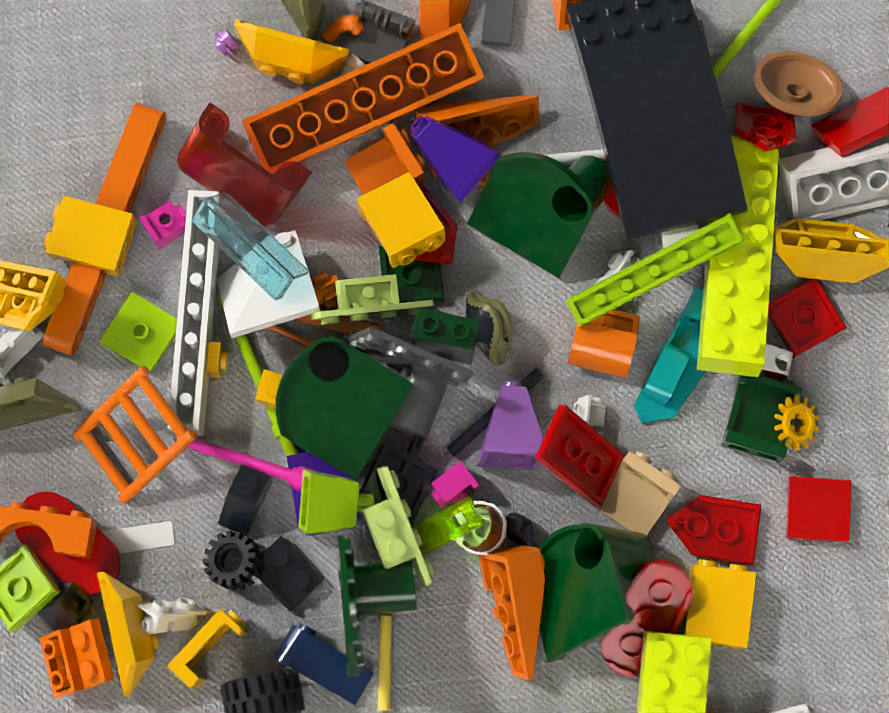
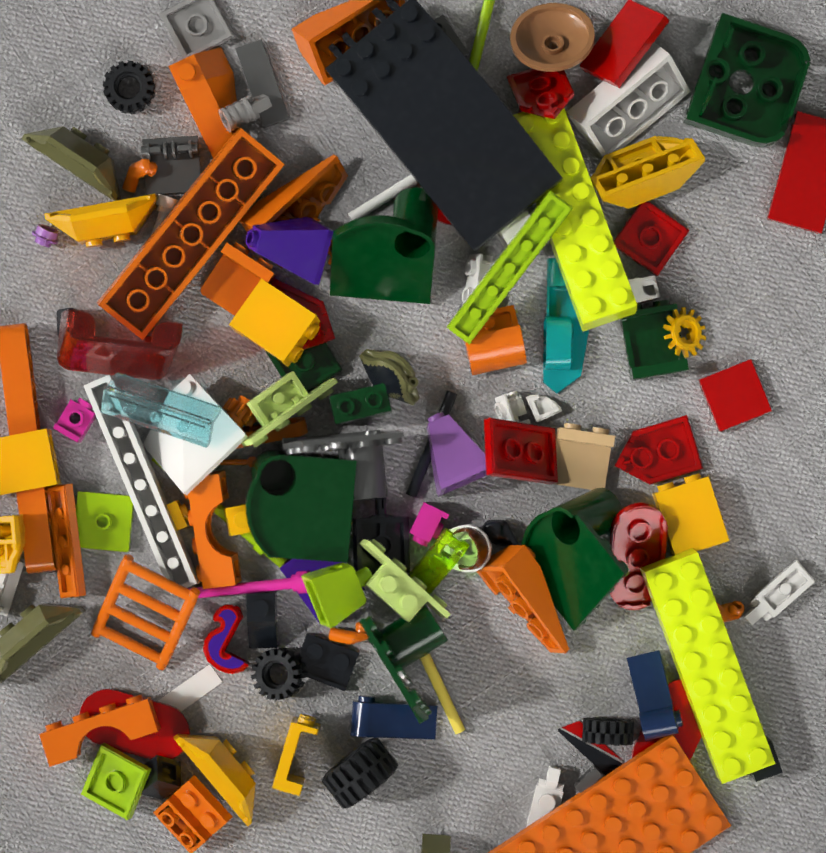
camera: 30 degrees left, 10 degrees up
(95, 332) = (66, 541): none -> orange tile
(180, 614) = (251, 743): white hinge -> none
(194, 498) = (219, 639): none -> animal
(227, 422) = (216, 564): none -> orange arch
(319, 558) = (347, 636): none -> orange arm
(469, 14) = (243, 111): none -> light grey hinge
(621, 429) = (542, 407): none -> white tile

